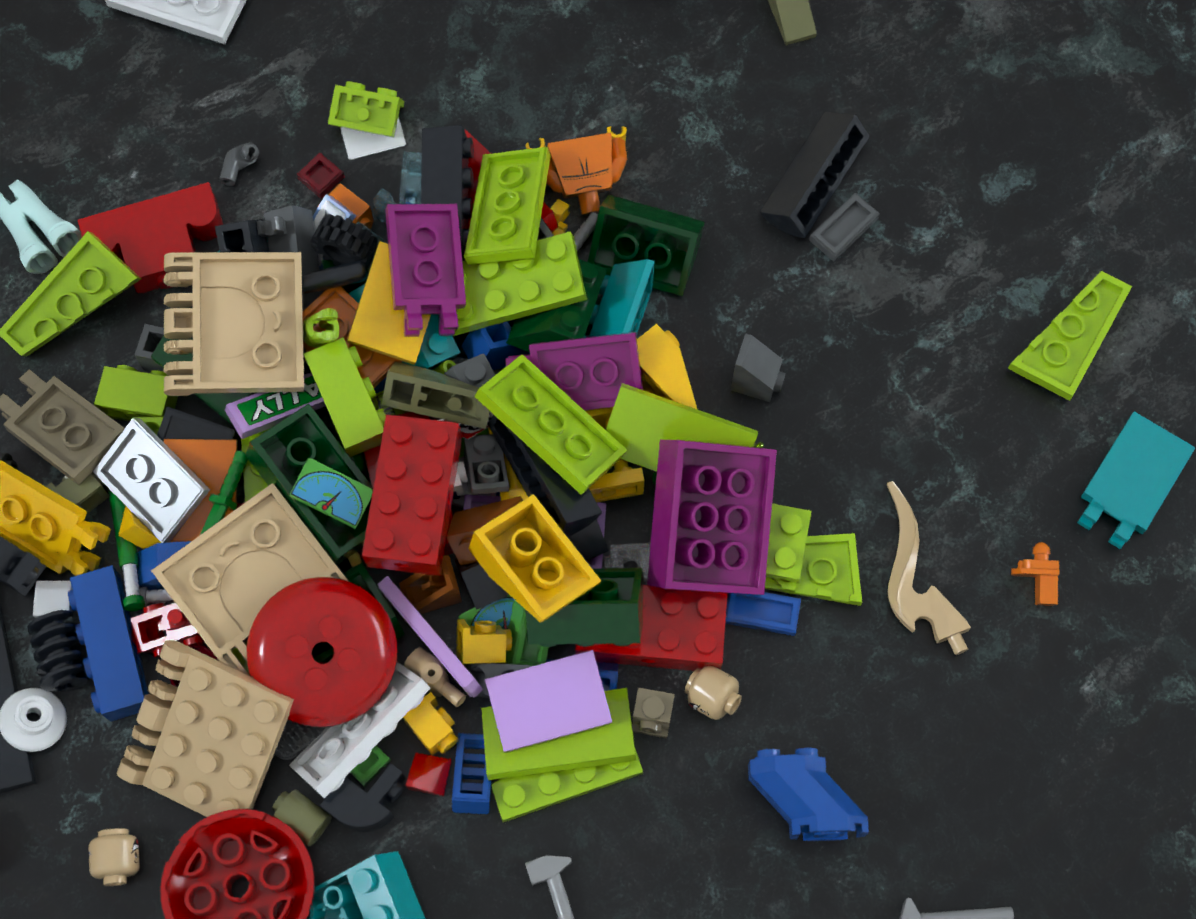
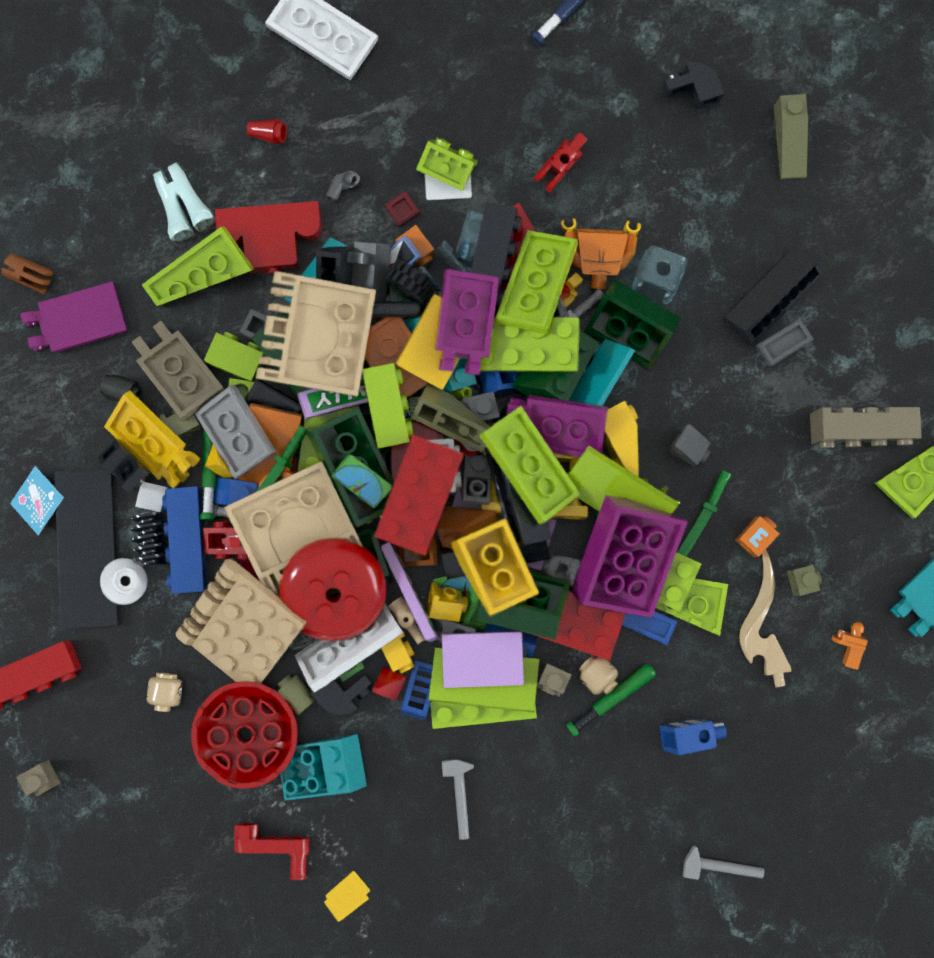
camera: 10 degrees right, 15 degrees up
(130, 119) = (268, 130): none -> red cone
(327, 319) = (382, 358): lime hinge -> none
(509, 77) = (569, 153): none -> red hinge
(680, 174) = (647, 271): none -> clear light blue piece
(747, 713) = (618, 694): none -> green piece
(803, 445) = (705, 514): none -> green sword
(806, 795) = (644, 765): blue brick -> none
(859, 741) = (691, 736): none -> blue torso
(876, 464) = (757, 535): none -> orange brick
(952, 505) = (804, 580): none -> olive brick
(973, 298) = (865, 425): none -> dark tan wedge

